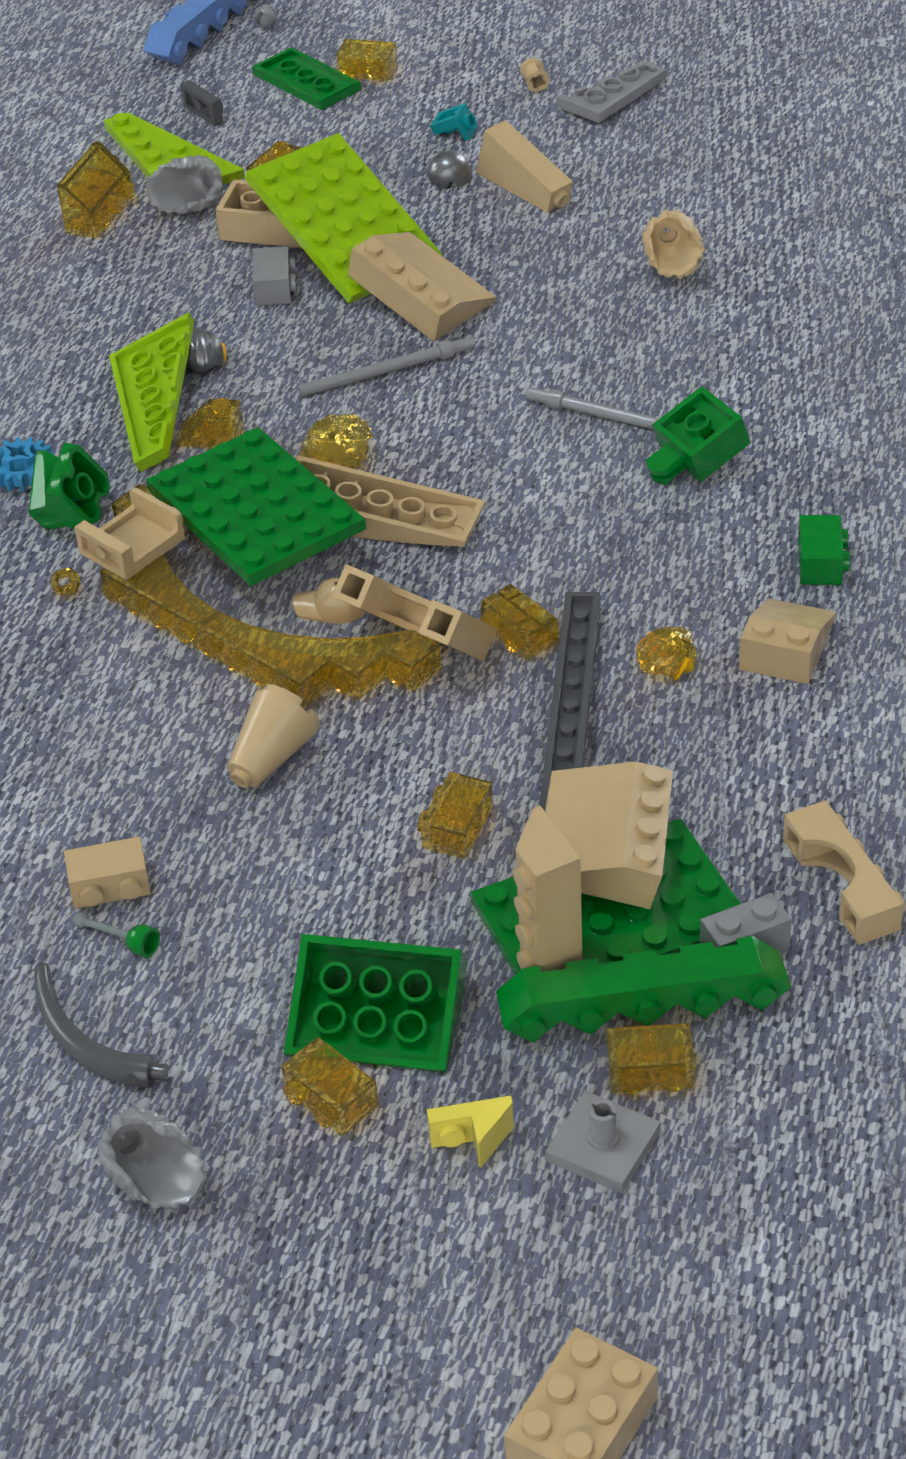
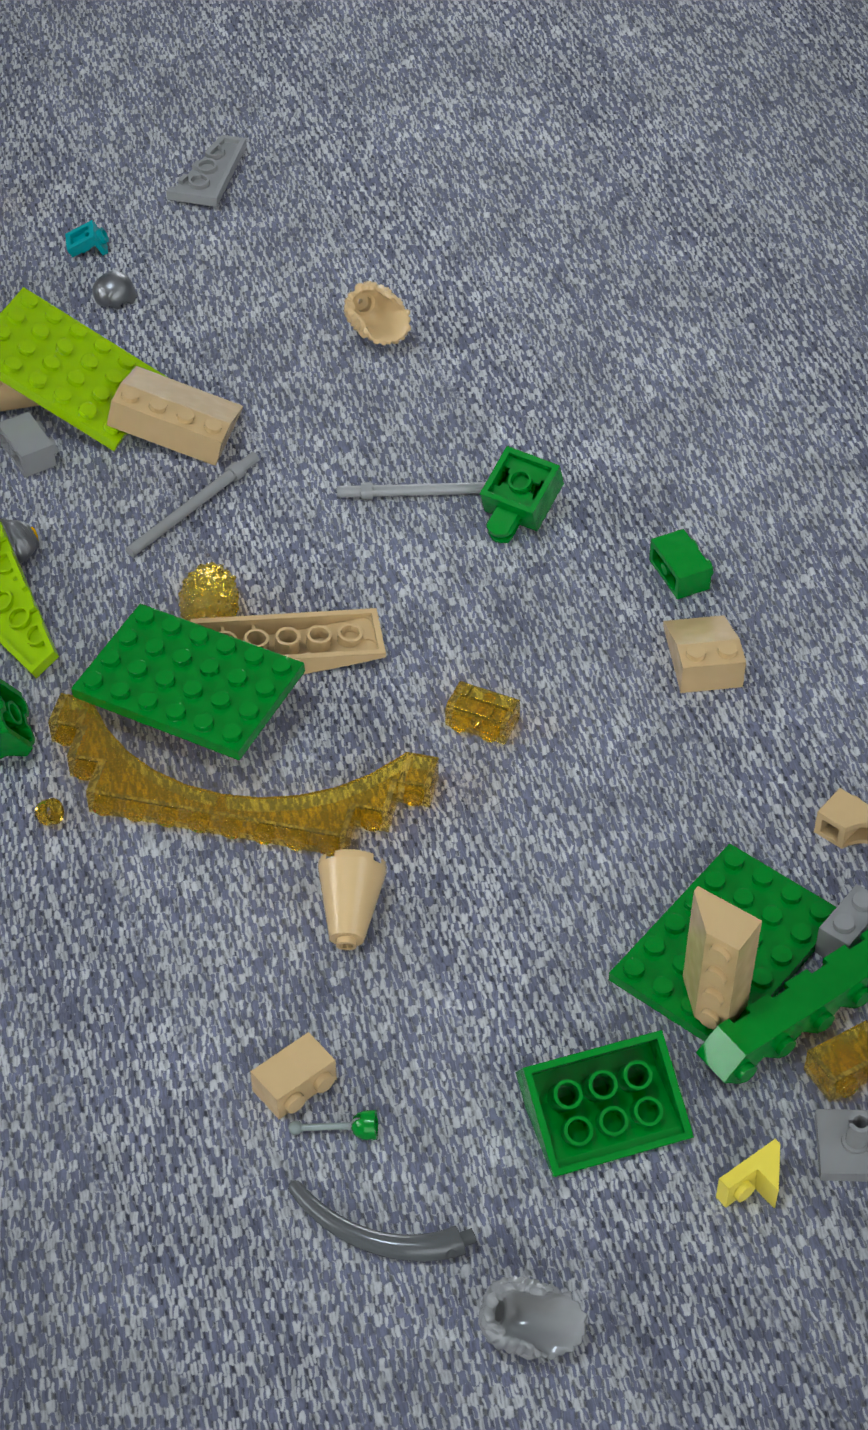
camera: 30 degrees left, 5 degrees up
(133, 536) = (98, 747): tan panel -> none
(212, 424) = (78, 612): clear yellow slope -> none
(322, 607) = (304, 748): tan cap -> none
(329, 1087) = (618, 1191): clear yellow brick -> none
(411, 611) = (401, 736): tan arch -> none
(456, 815) = (552, 908): clear yellow brick -> none
(521, 168) = (188, 273): tan slope -> none
(534, 74) = (130, 174): tan bush -> none
(572, 686) = (600, 809): dark grey plate -> none
(615, 825) = (694, 852): tan slope -> none
(667, 652) = (620, 698): clear yellow hair -> none

